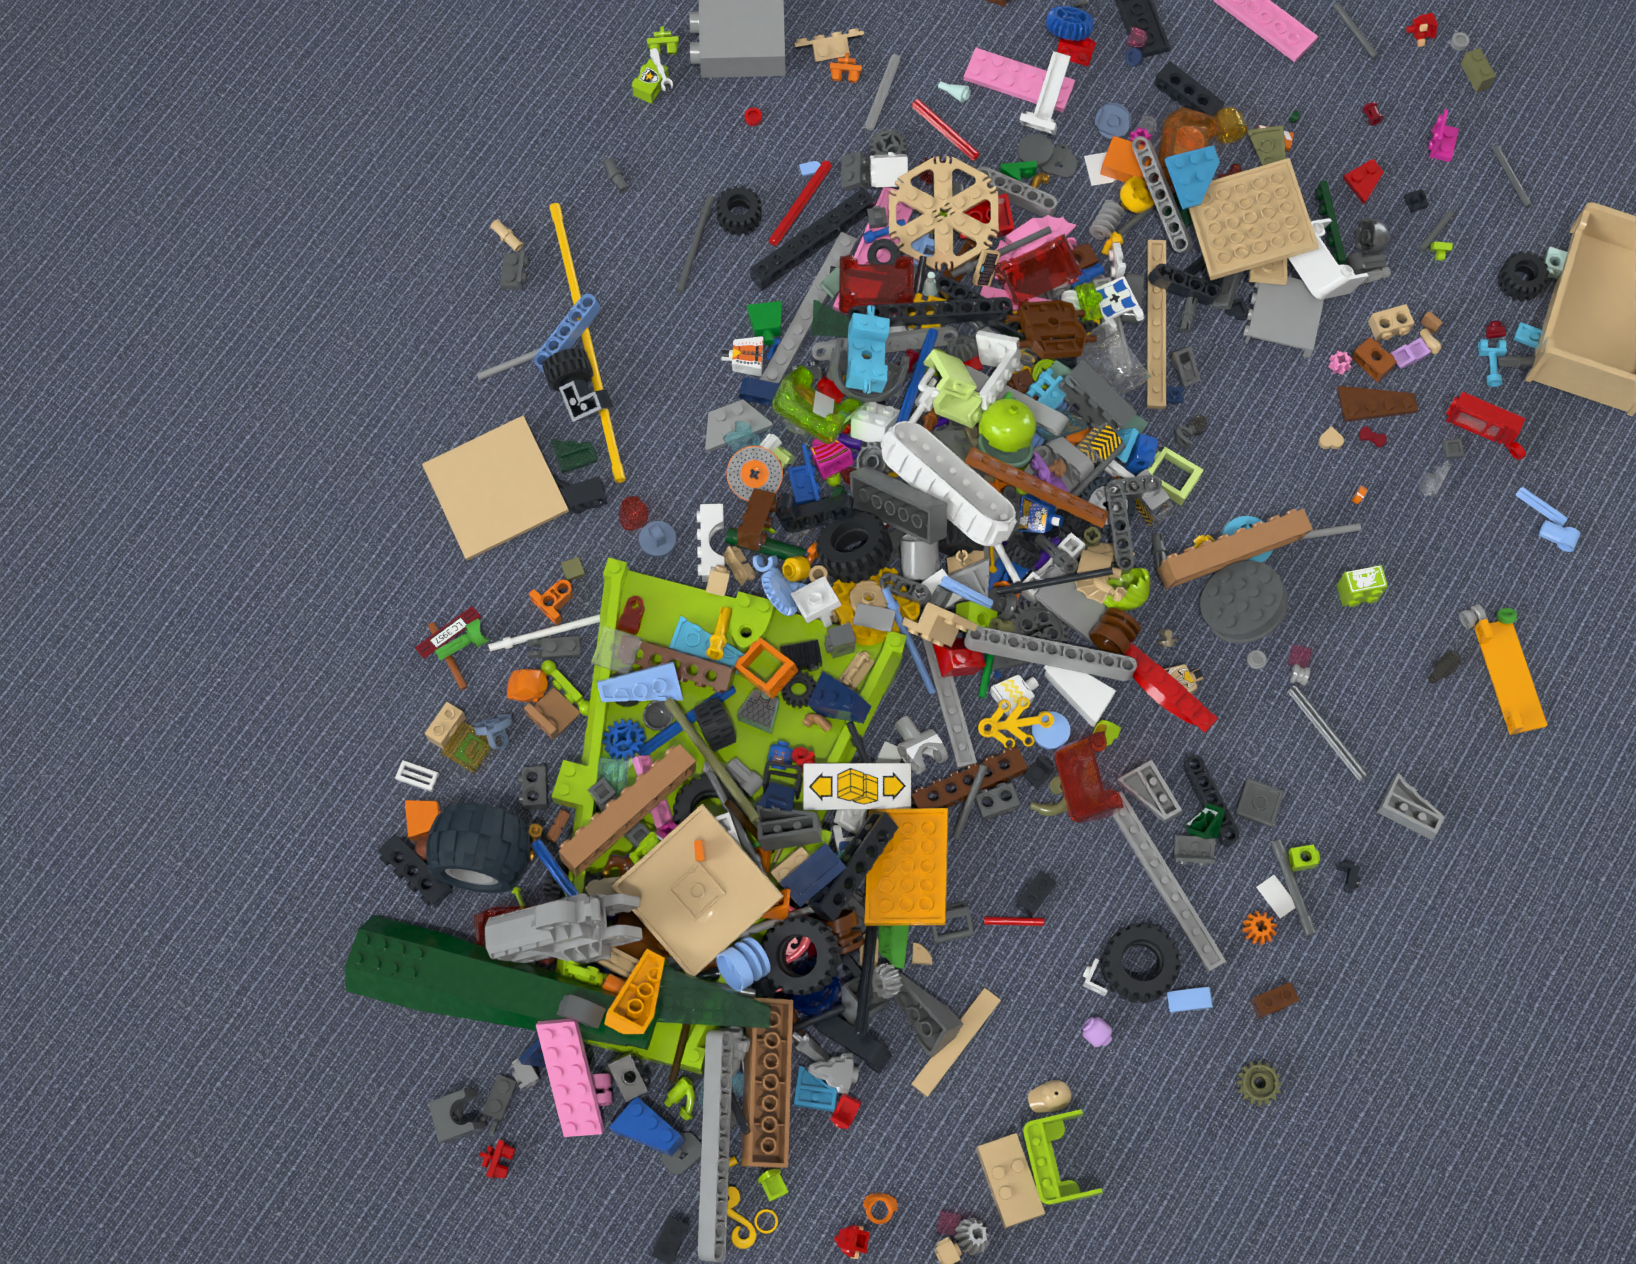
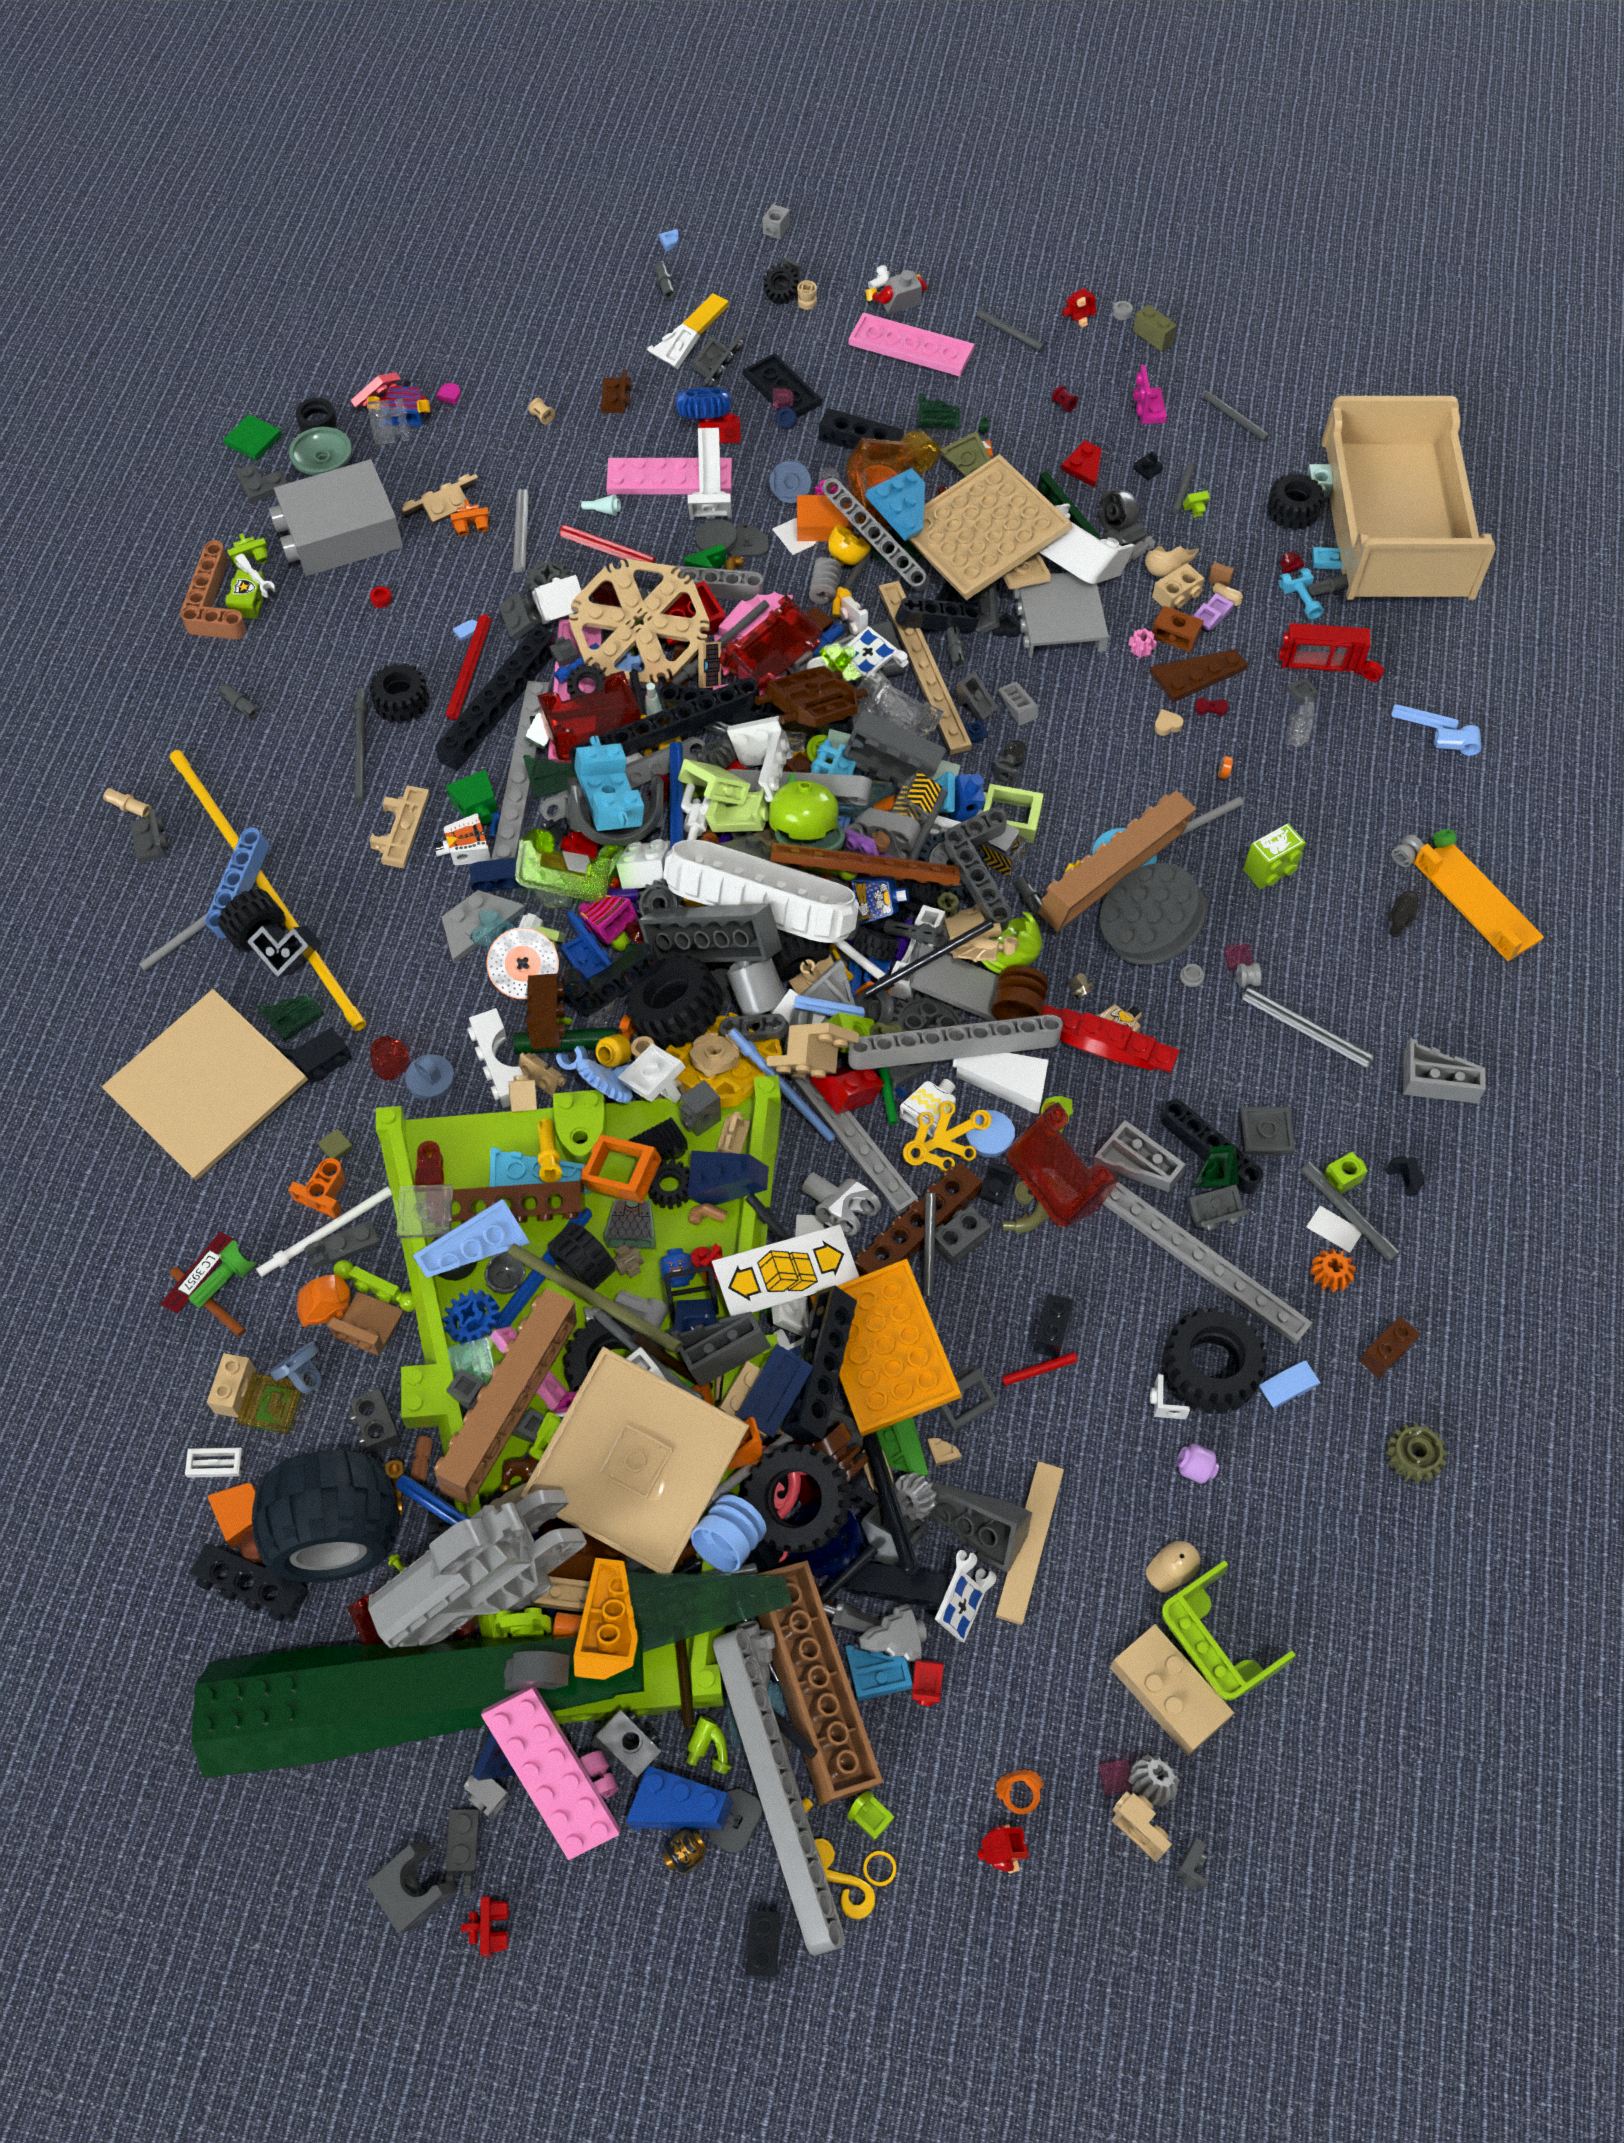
camera: 20 degrees left, 10 degrees down
(618, 72) = (197, 609): none -> nougat beam
(641, 1160) = (684, 1851): none -> head
(699, 848) = (621, 1405): orange tile -> none
(713, 315) = (408, 816): none -> tan hinge
(747, 737) = (628, 1260): none -> dark tan gear
(874, 617) = (731, 1067): light grey slope -> none
(892, 1064) = (963, 1596): none -> white flag
(1219, 392) = (1019, 704): none -> light grey slope
(1260, 93) = (937, 414): none -> clear green wing
(1388, 297) = (1163, 563): none -> tan hair

